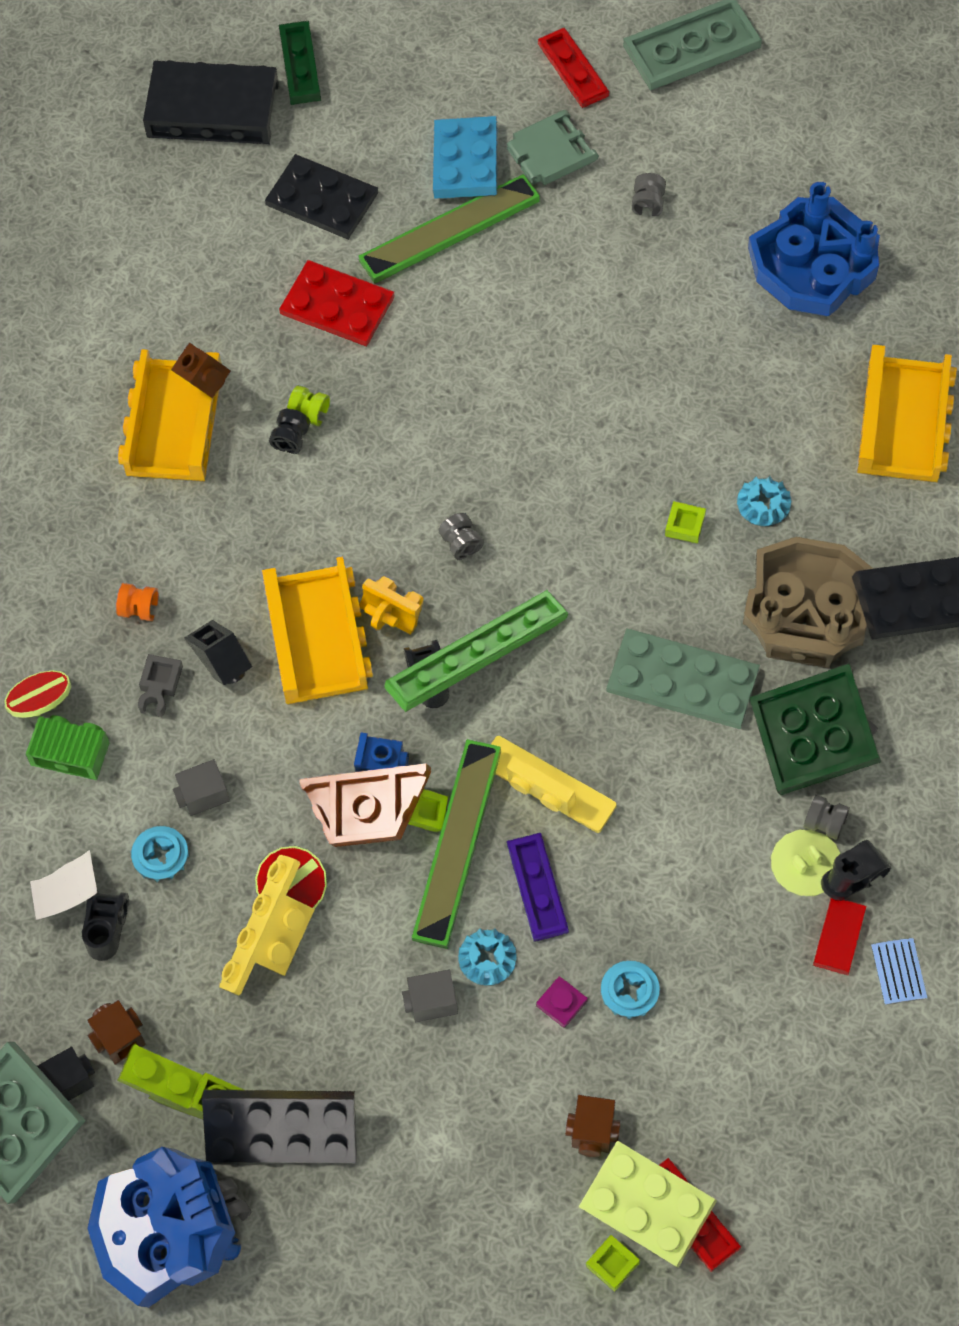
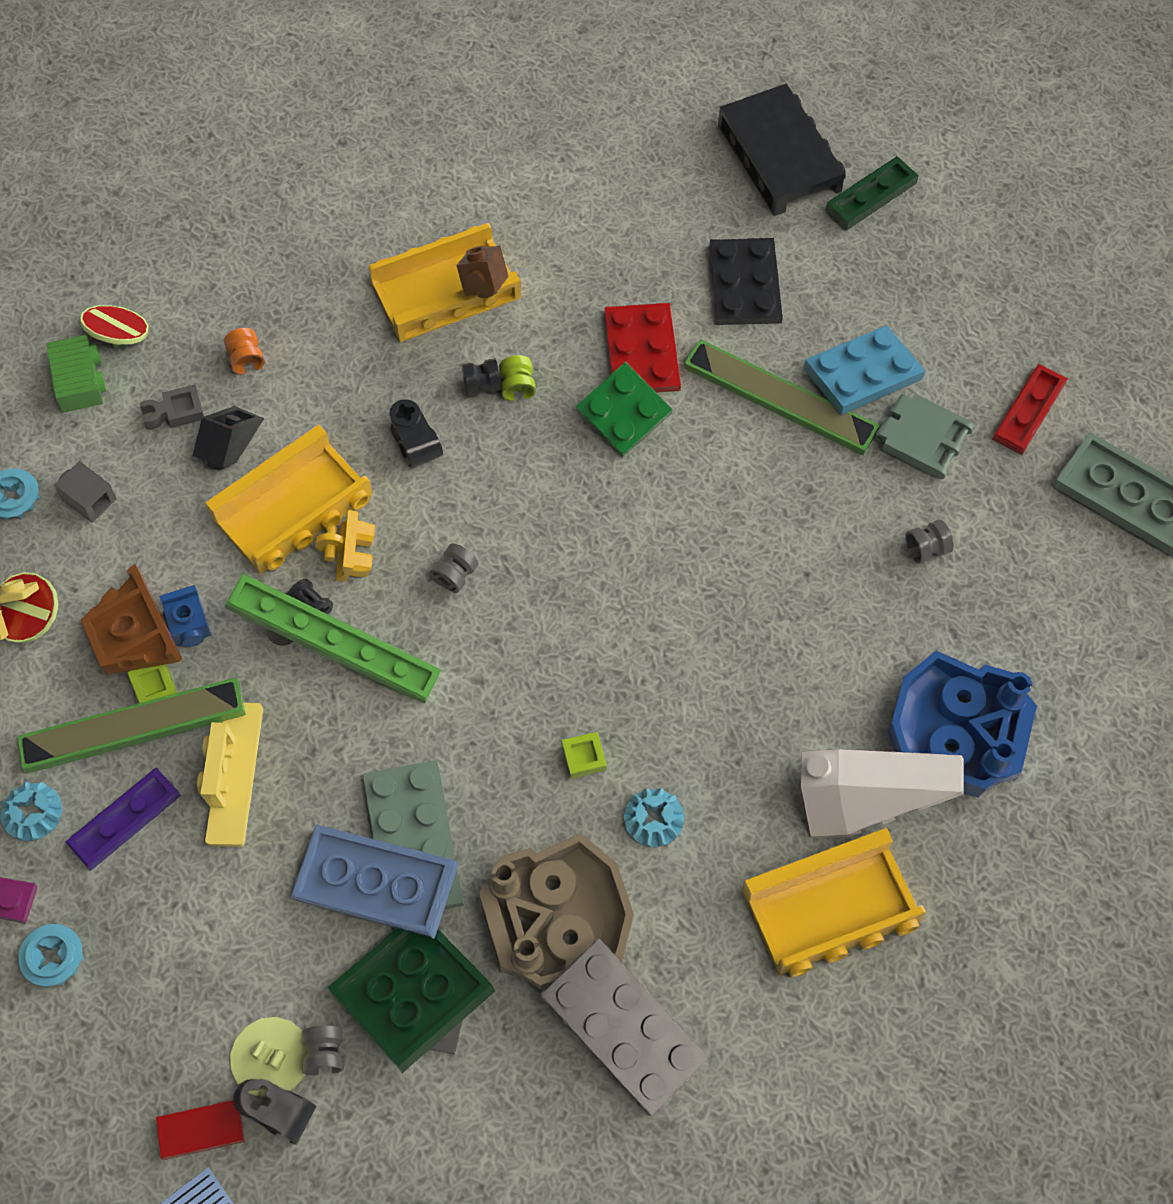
camera: 55 degrees right, 0 degrees up
(315, 508) = (413, 433): none -> black piece
(391, 342) = (624, 409): none -> green plate
(708, 716) = (375, 881): none -> medium blue tile
(834, 340) = (862, 788): none -> white wedge

